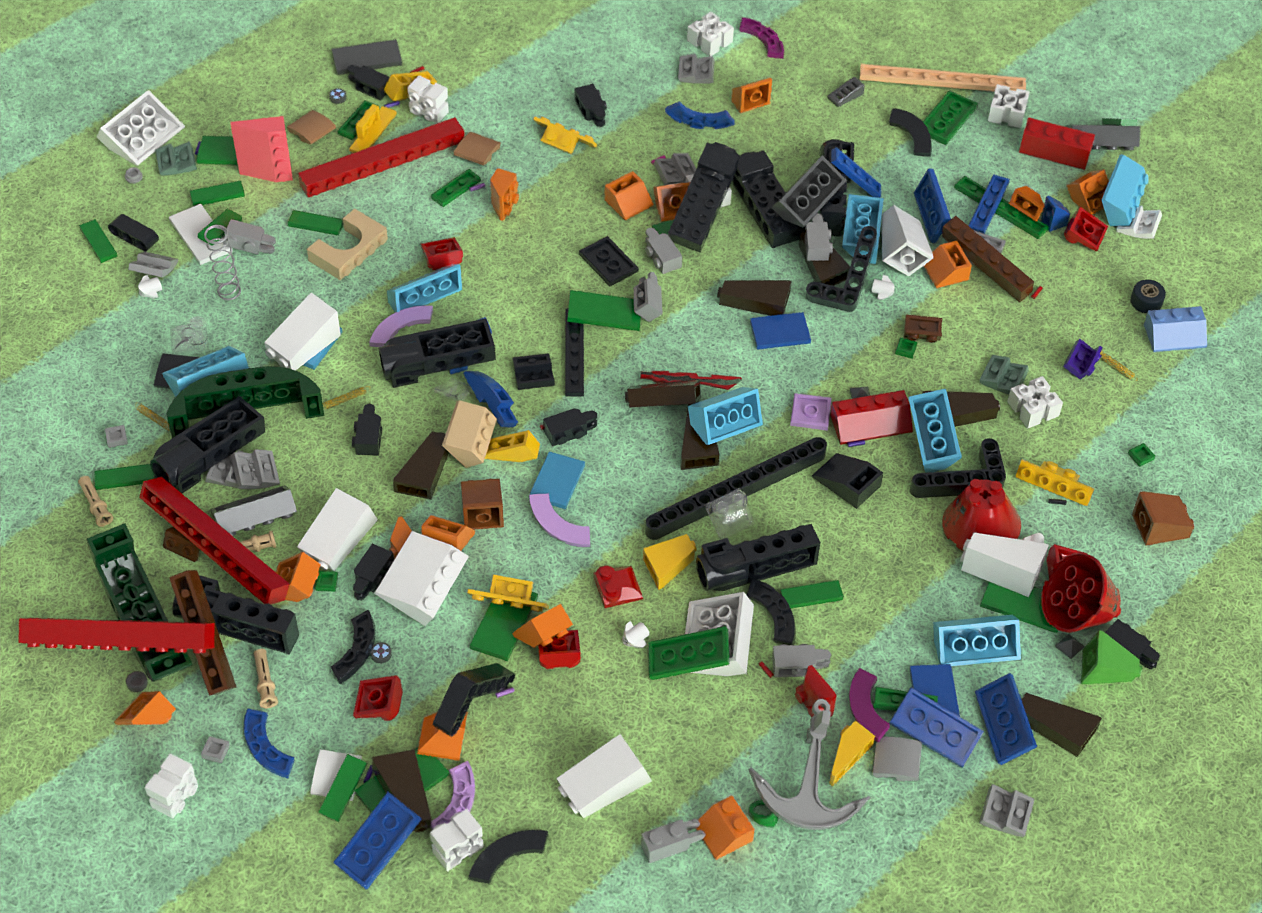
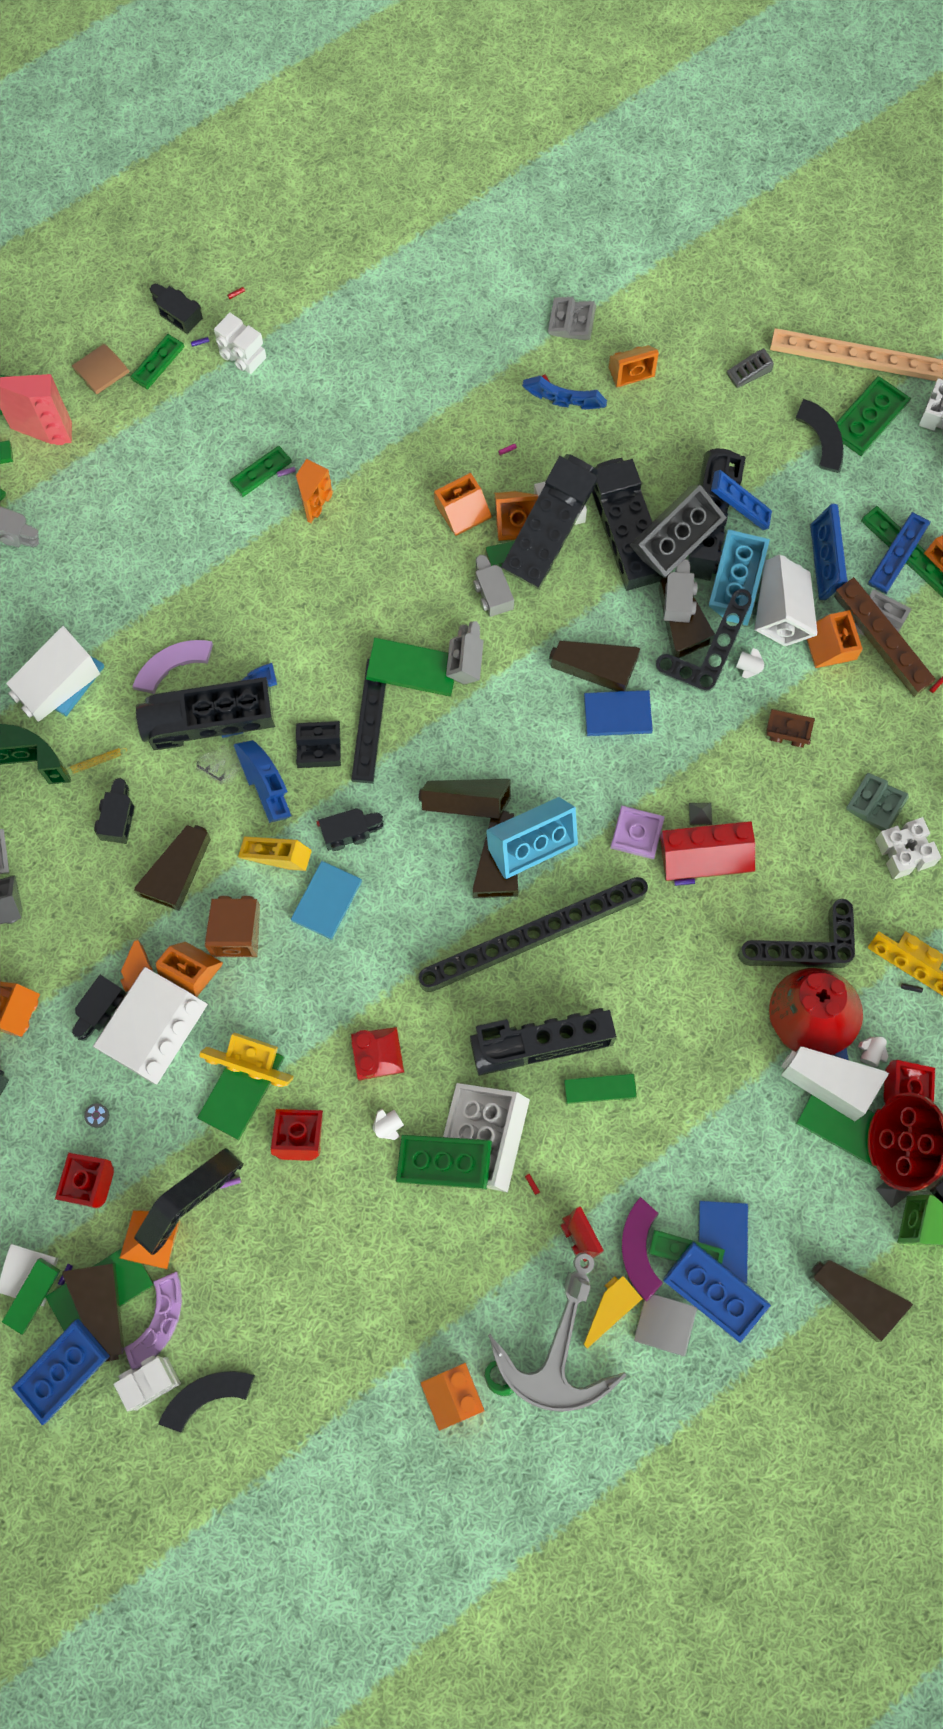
camera: 10 degrees right, 20 degrees up
(315, 222) = (90, 508): green tile -> none
(327, 581) = (47, 1012): green tile -> none
(337, 96) = (137, 324): dark grey tile -> none
(337, 530) = (63, 950): white slope -> none
(341, 262) = (113, 570): tan arch -> none
(362, 646) = (79, 1097): black tile -> none
(371, 126) = (170, 376): yellow bracket -> none
(373, 55) = (178, 268): dark grey tile -> none
(381, 157) = (177, 421): red brick -> none
(398, 83) = (210, 315): yellow slope -> none
(426, 288) = (205, 618): medium azure slope -> none
(442, 253) = (231, 567): red slope -> none
(469, 433) = (229, 832): tan slope -> none
(477, 148) = (292, 416): medium nougat slope -> none
(544, 627) = (281, 1111): orange slope -> none
(555, 525) = (315, 964): lavender tile -> none
(561, 138) = (393, 409): yellow bracket -> none
(591, 104) = (436, 362): black hinge -> none
(603, 777) = (324, 1316): white slope -> none
(608, 261) = (427, 593): black tile -> none
(669, 558) = (440, 1025): yellow slope -> none
(670, 839) = (388, 1405): light grey hinge -> none
(675, 169) = (526, 466): light grey slope -> none
(710, 34) = (595, 268): white brick -> none
(716, 381) = (533, 777): red sword -> none
(730, 513) = (519, 971): clear slope -> none
(767, 35) = (664, 273): magenta tile -> none
(778, 608) = (558, 1106): black tile -> none
(795, 659) = (570, 1180): light grey hinge -> none
(850, 478) = (667, 934): black slope -> none
(906, 348) = (765, 751): green tile -> none
(935, 430) = (779, 884): medium azure slope -> none
(972, 407) = (813, 847): dark brown slope -> none
(977, 640) = (784, 1174): medium azure slope -> none
(1005, 719) = (799, 1290): blue tile -> none
(1006, 811) = (781, 1407): light grey slope -> none

